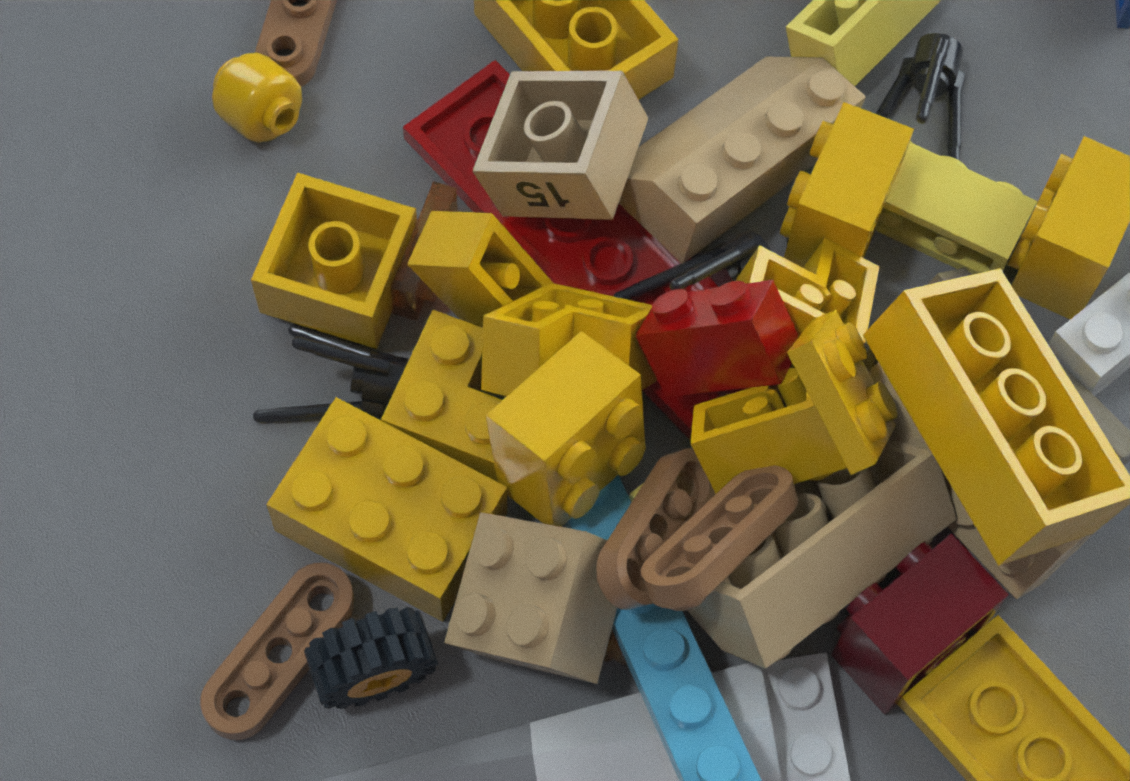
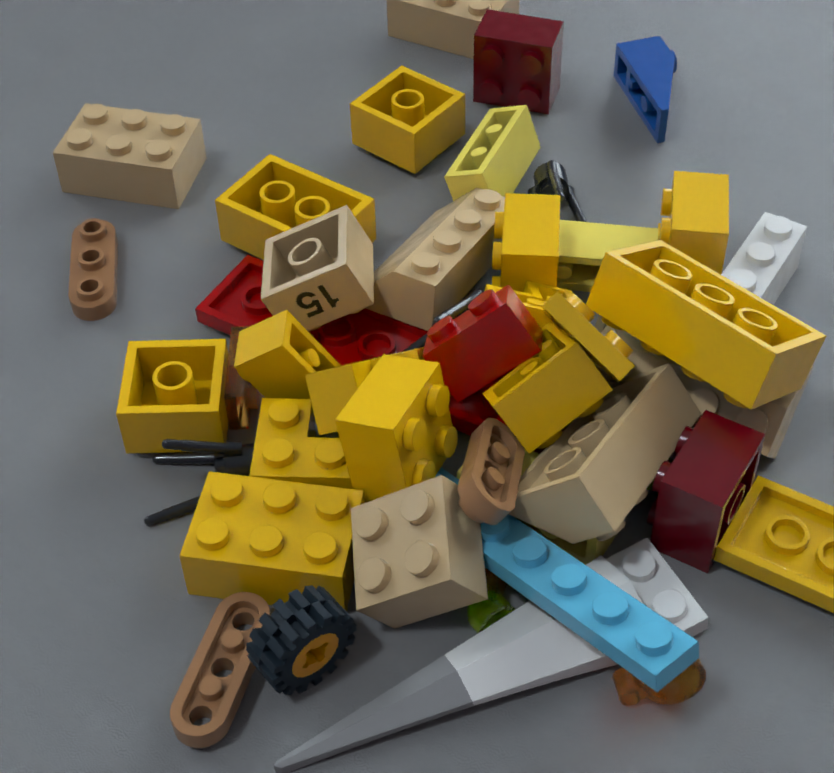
camera: 15 degrees left, 20 degrees down
(254, 95) = (79, 320): yellow head -> none
(611, 685) = (488, 611): none -> clear neon green hinge
(719, 537) = (541, 455): medium nougat plate -> none

